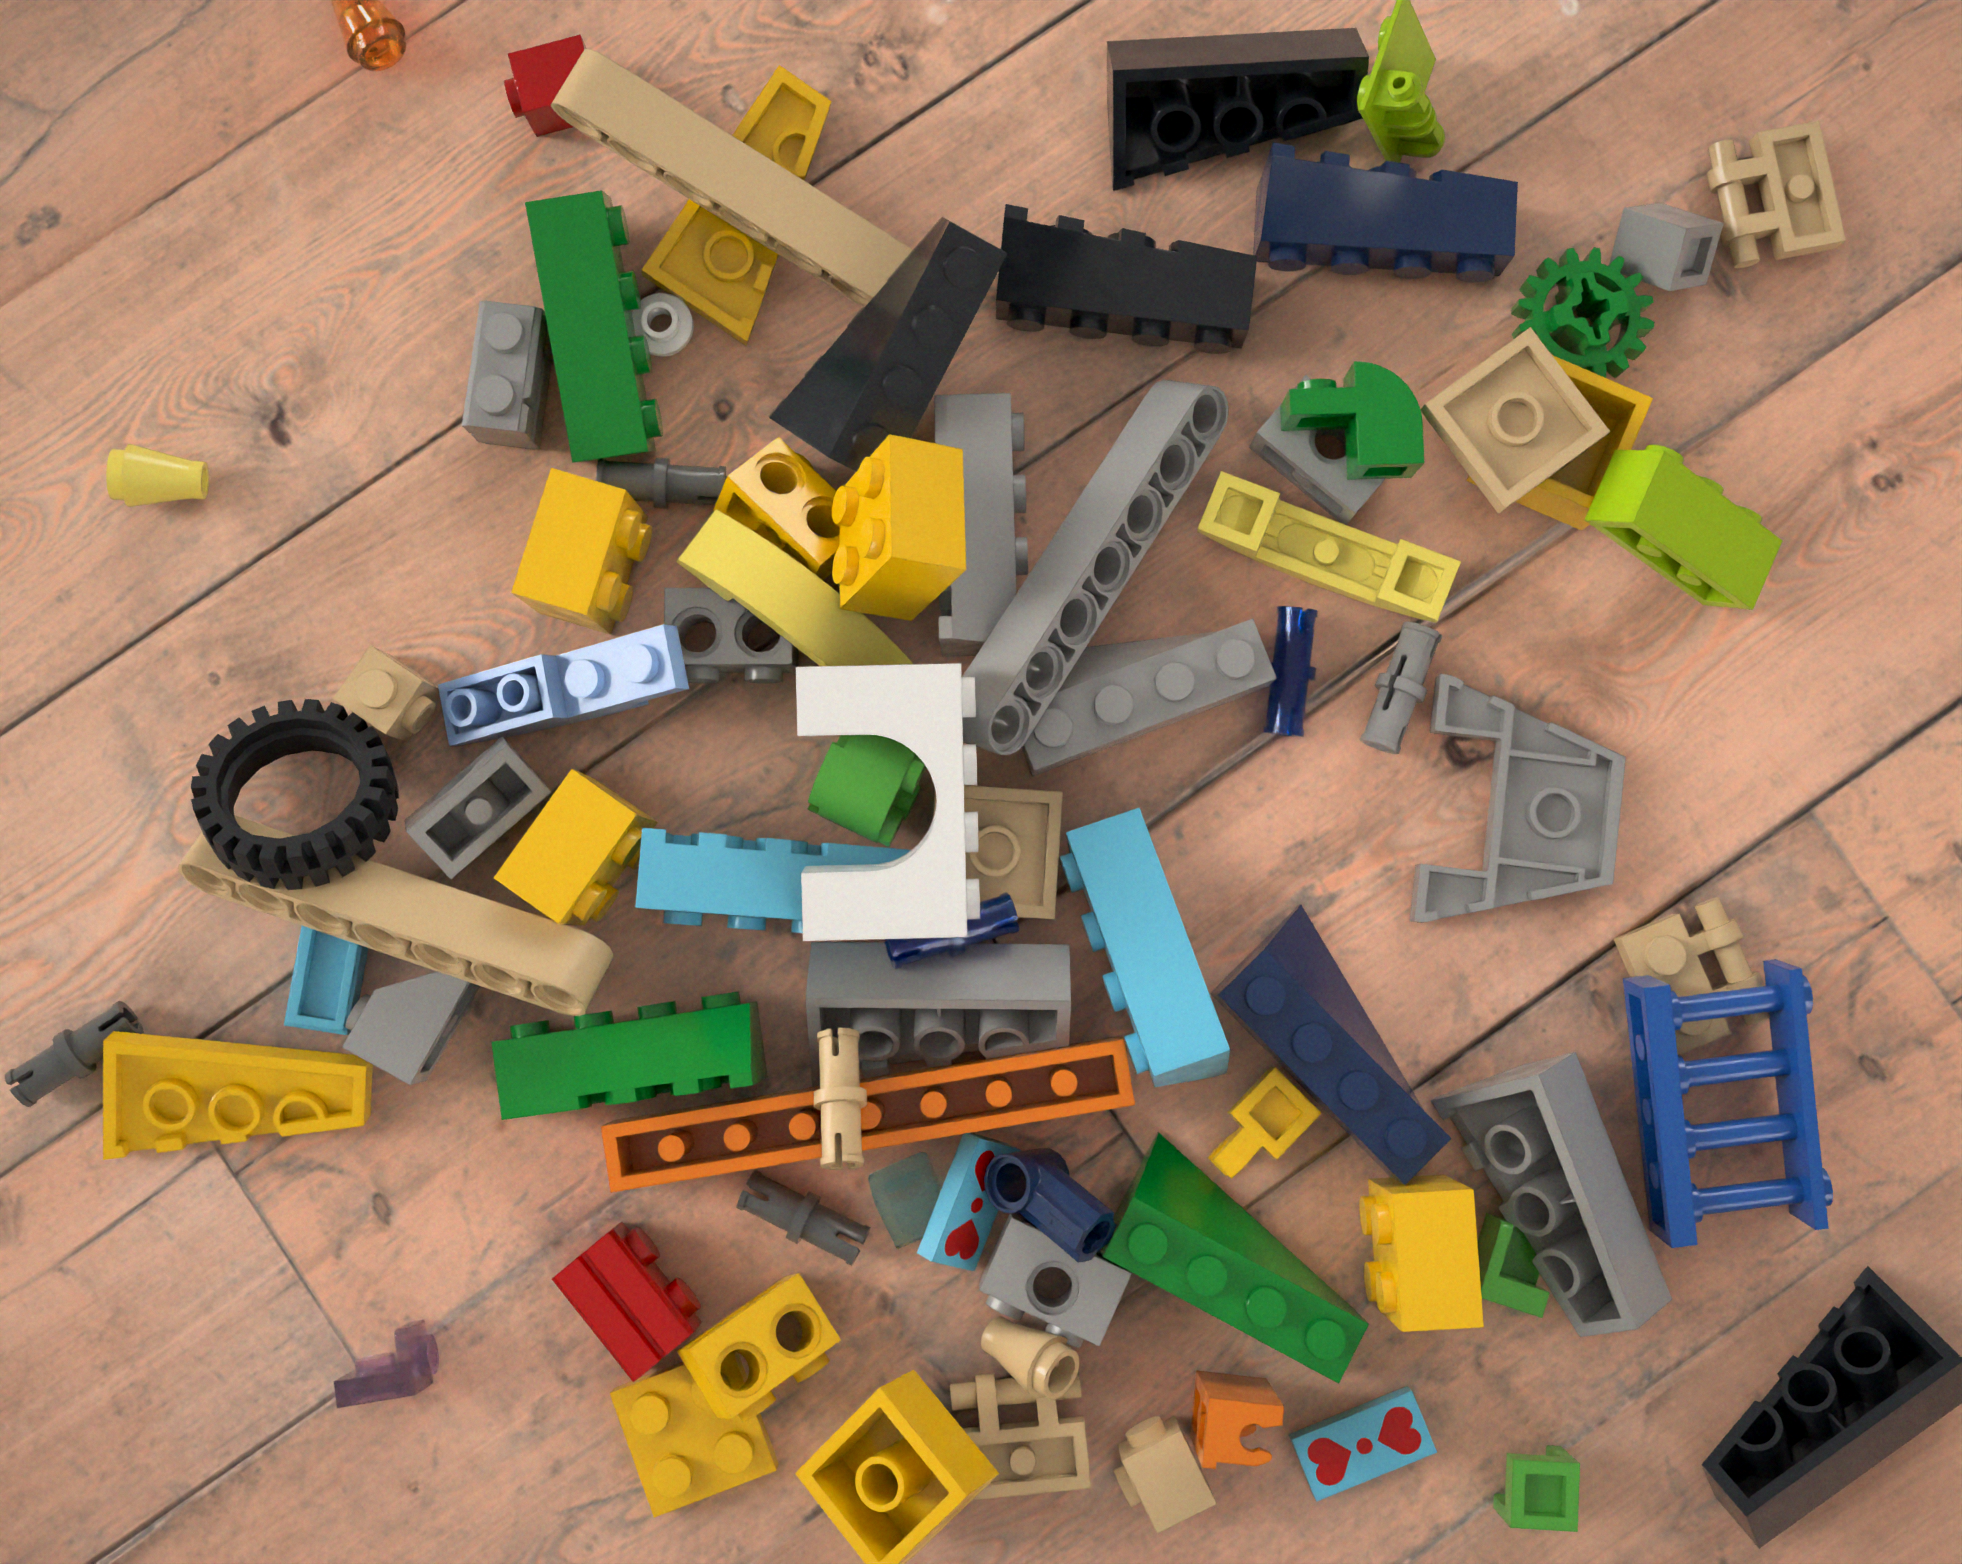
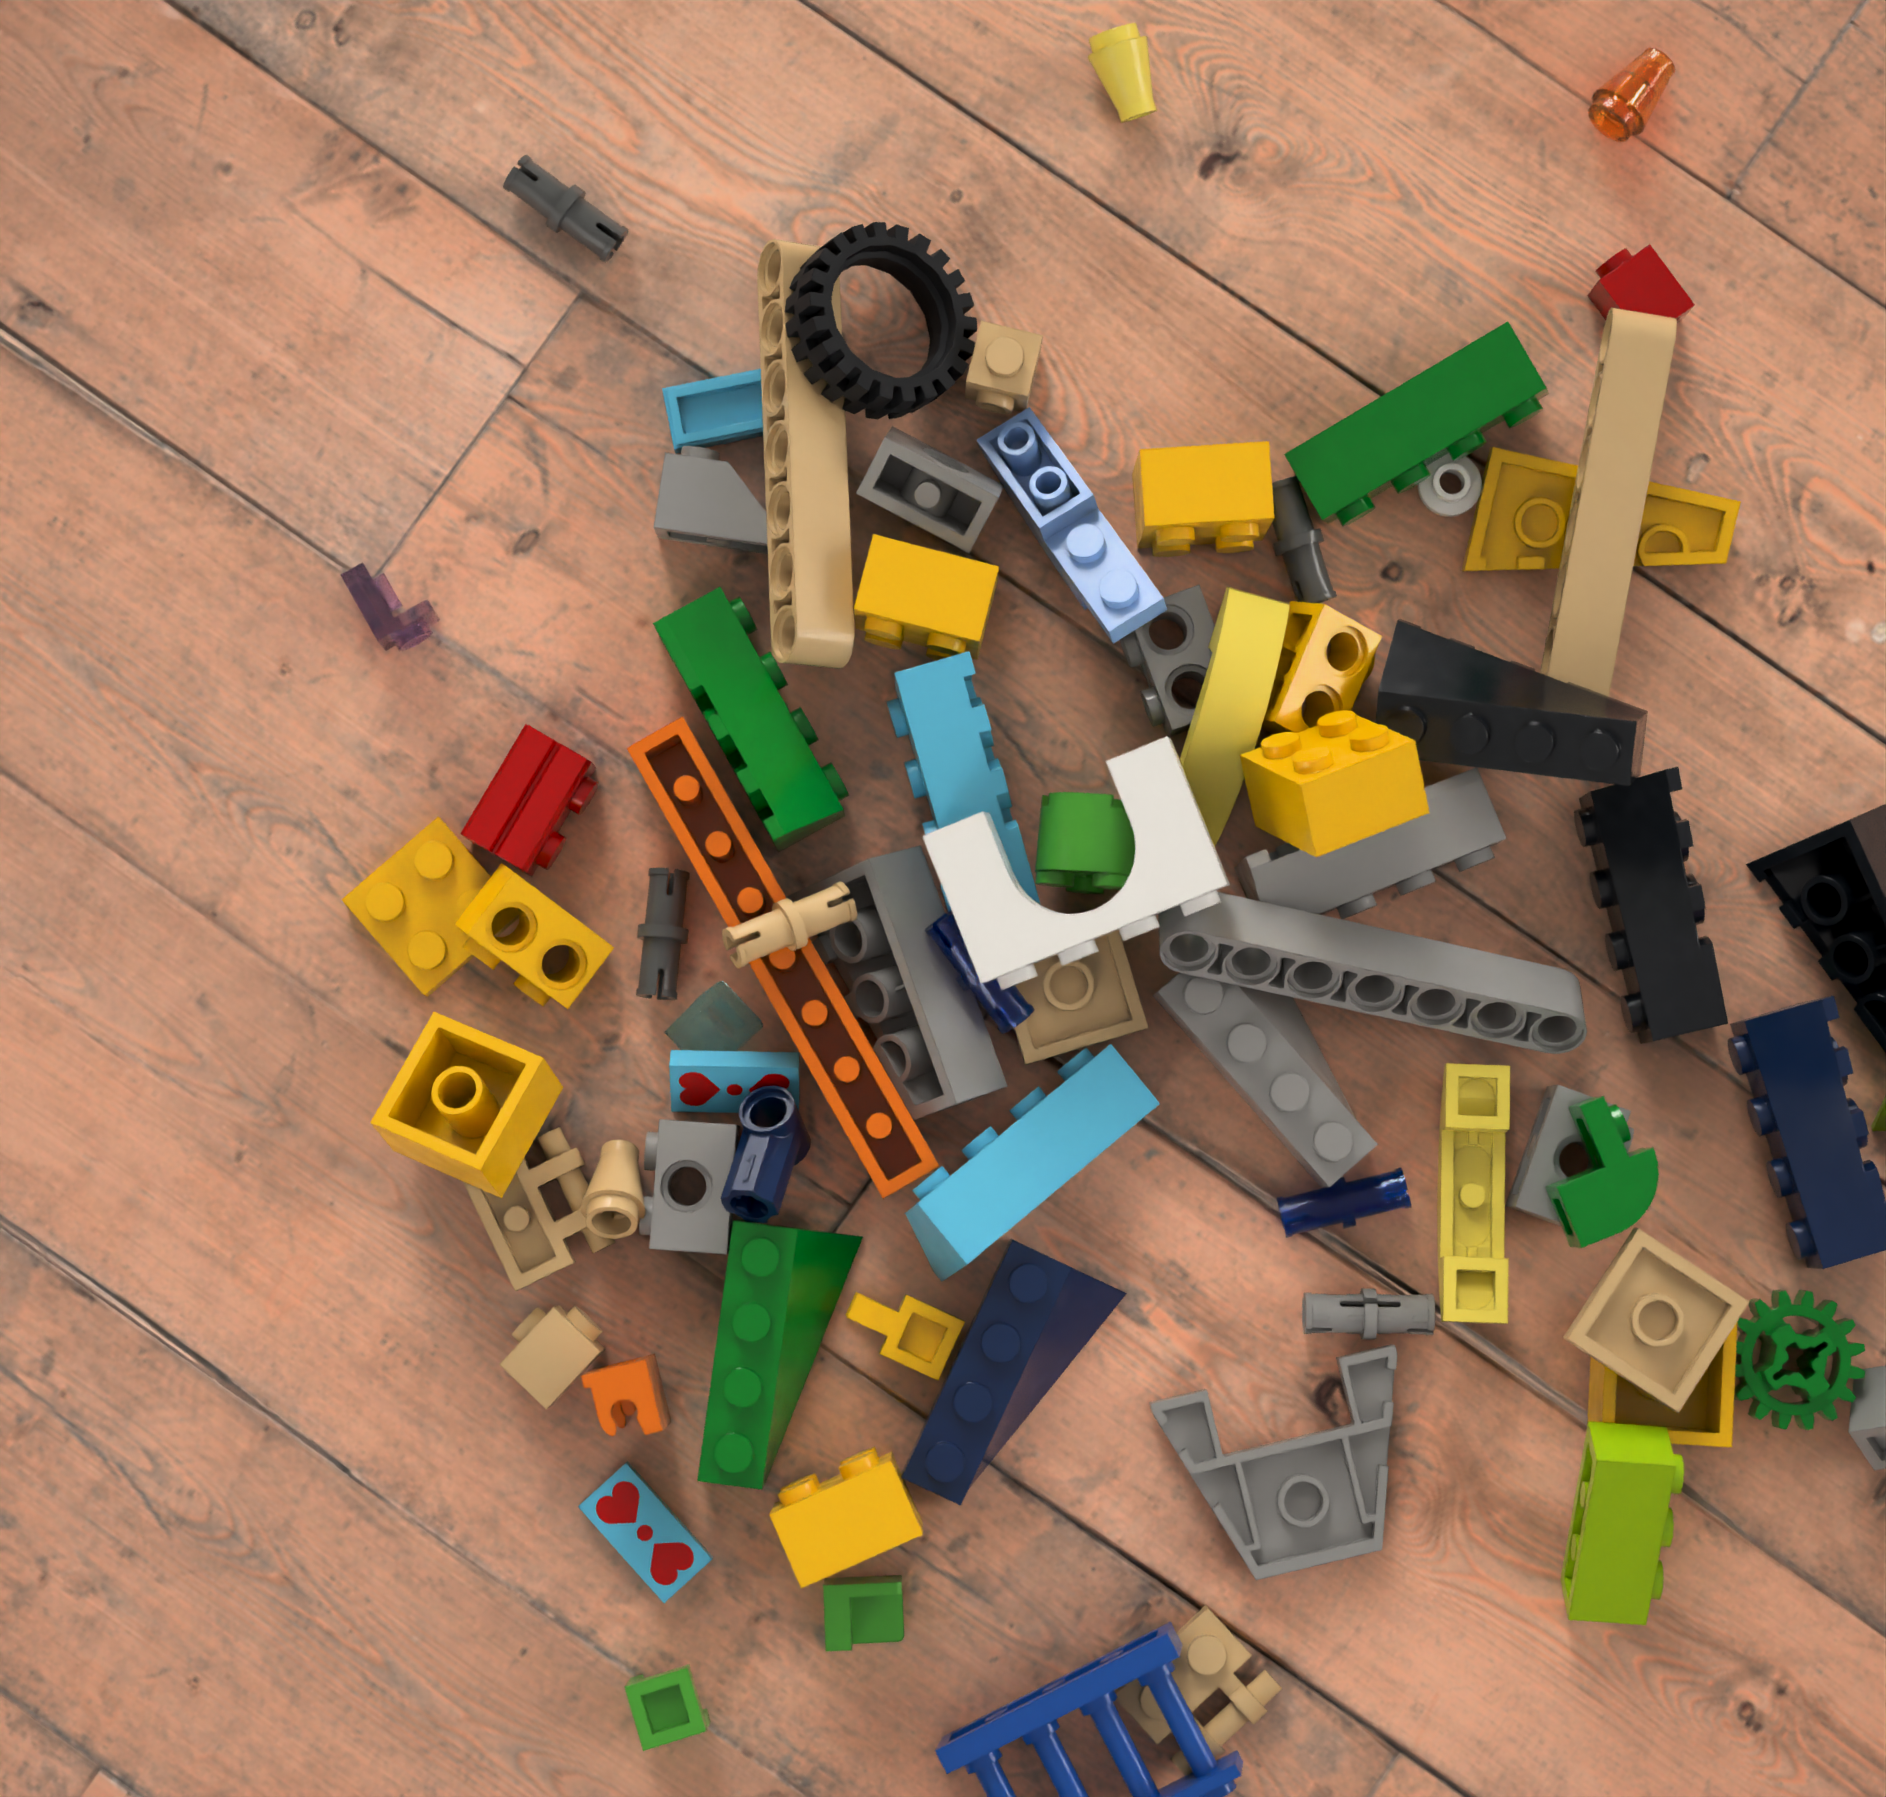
camera: 60 degrees right, 0 degrees up
(199, 1090) = (575, 337): yellow wing -> none
(508, 376) = (1344, 362): light grey brick -> none
(1563, 1189) = (950, 1633): light grey wedge -> none

